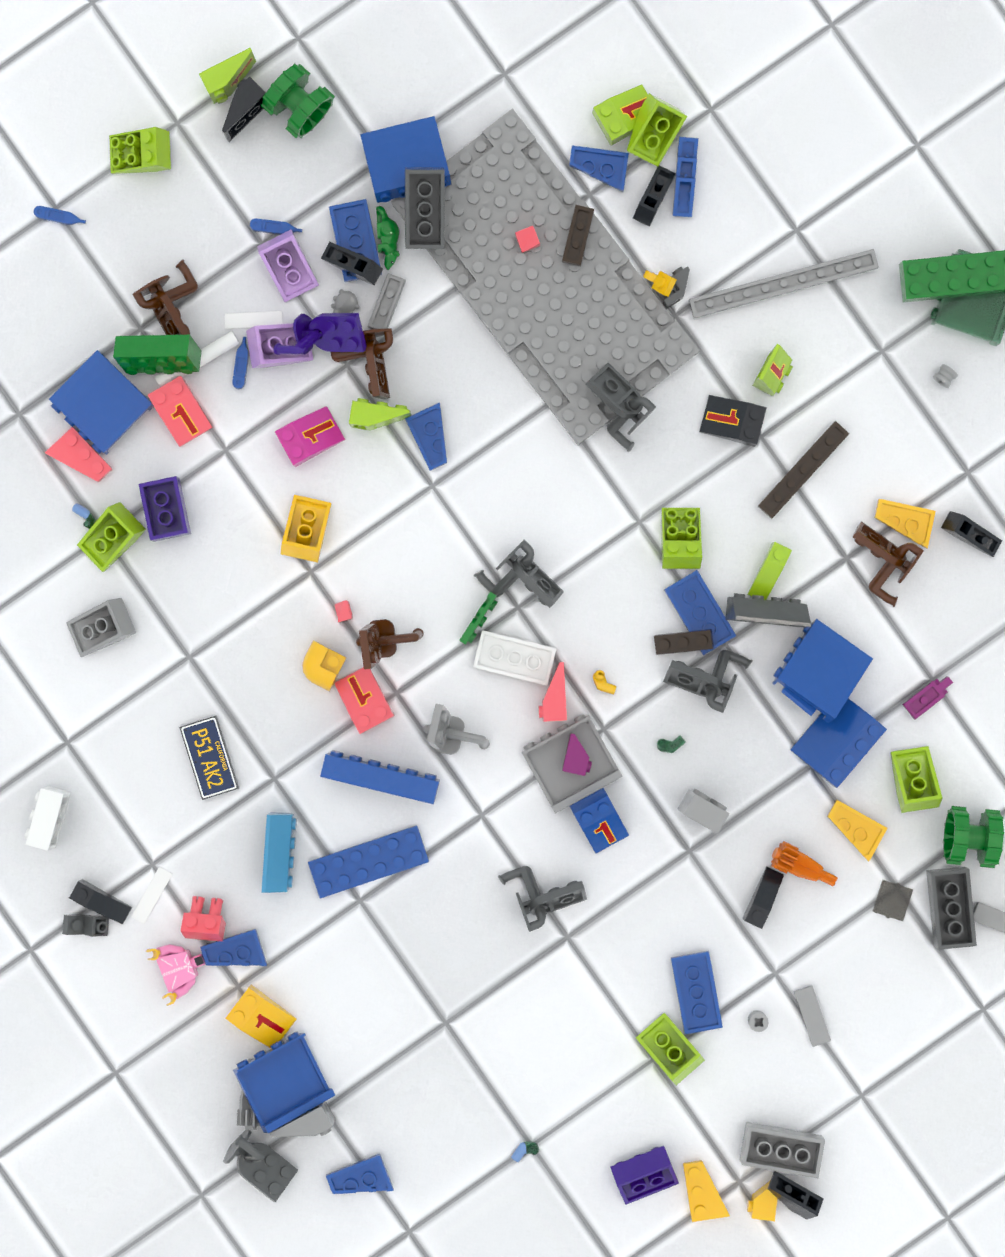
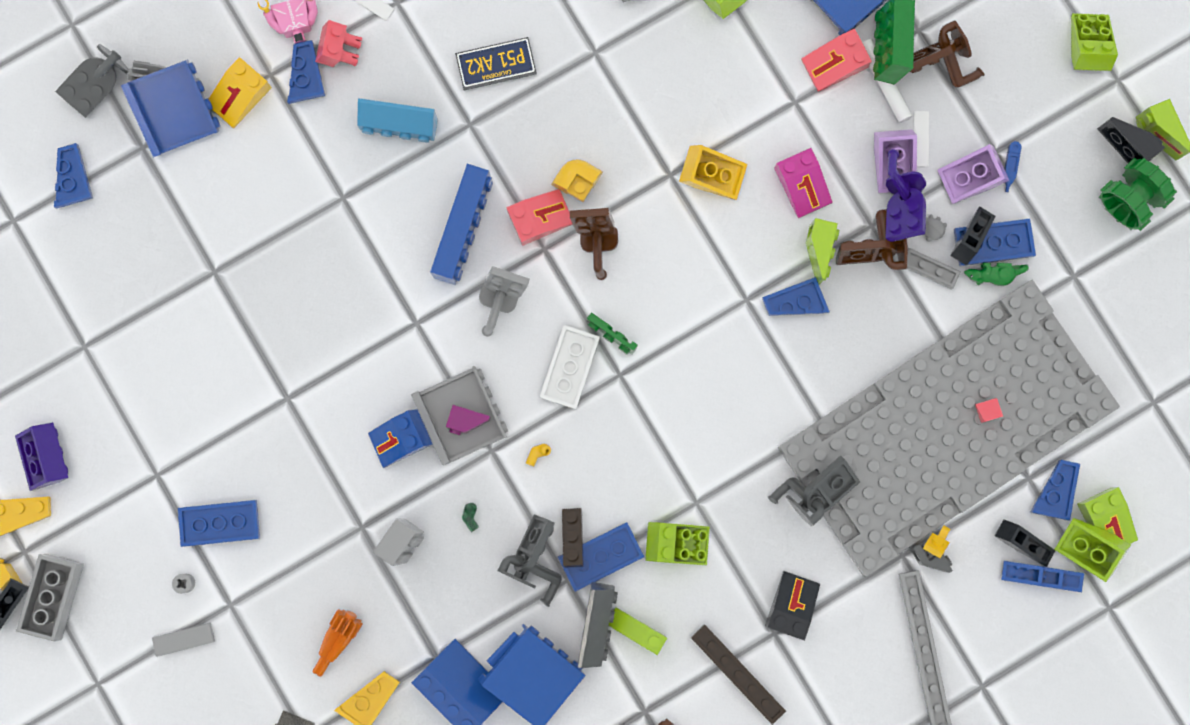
camera: 85 degrees right, 5 degrees down
(164, 508) = (741, 37): dark purple brick -> none
(241, 364) = (876, 122): blue piece -> none
(311, 1123) = (126, 129): light grey slope -> none
(343, 611) = (628, 203): coral slope -> none
(368, 861) = (380, 209): blue plate -> none
(399, 147) = (1073, 296): blue panel -> none
(424, 208) = (1026, 308): dark grey brick -> none
(525, 1148) = (82, 340): arm -> none
(528, 572) = (653, 386): dark grey plate -> none
(542, 904) = (321, 375): dark grey plate -> none
(554, 701) = (520, 401): coral slope -> none
(578, 235) = (990, 461): dark brown plate -> none
(670, 1049) = (164, 492): lime slope -> none
(763, 898) = (306, 598): black slope -> none
(773, 370) = (841, 651): lime slope -> none

